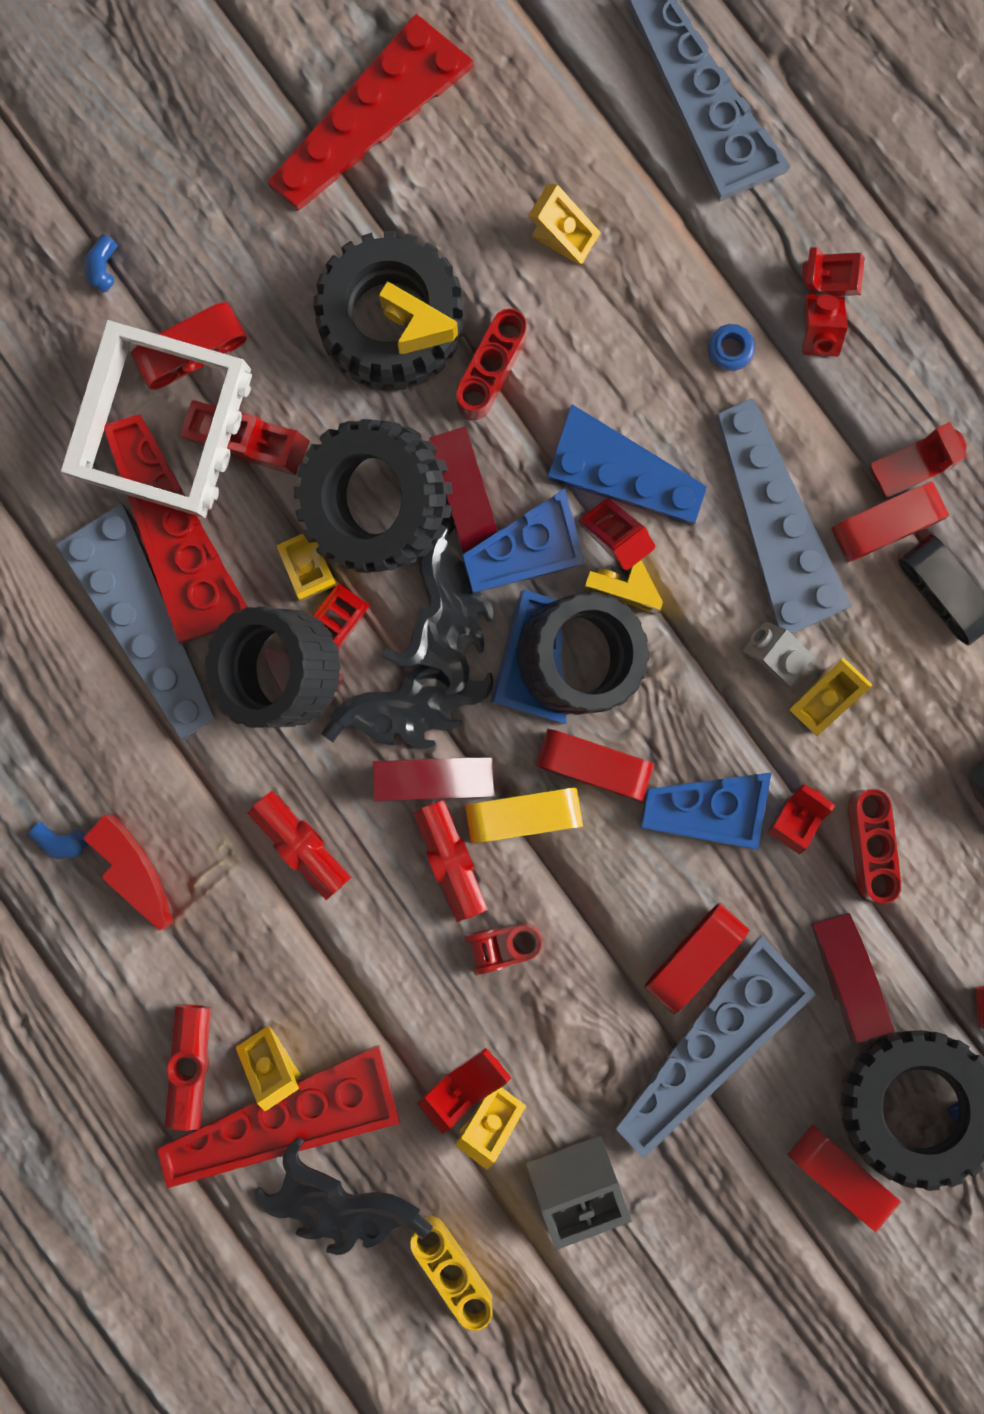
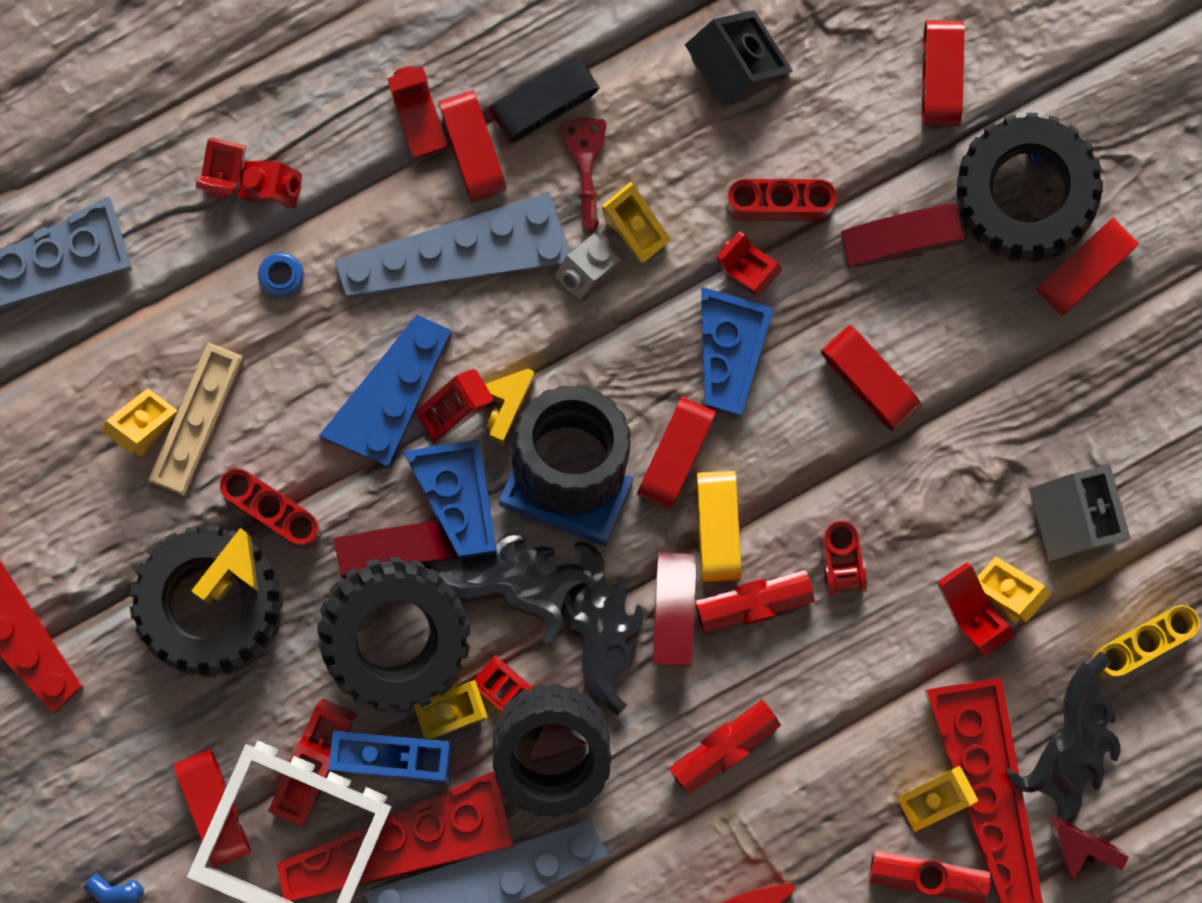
camera: 85 degrees left, 5 degrees down
(234, 1219) = (1075, 845): none -> dark red slope
(252, 512) = (392, 757): none -> blue slope
(574, 283) = (196, 419): none -> tan tile
(732, 1026) = (938, 352): sand blue wing -> none
(893, 640) = (585, 158): none -> dark red piece

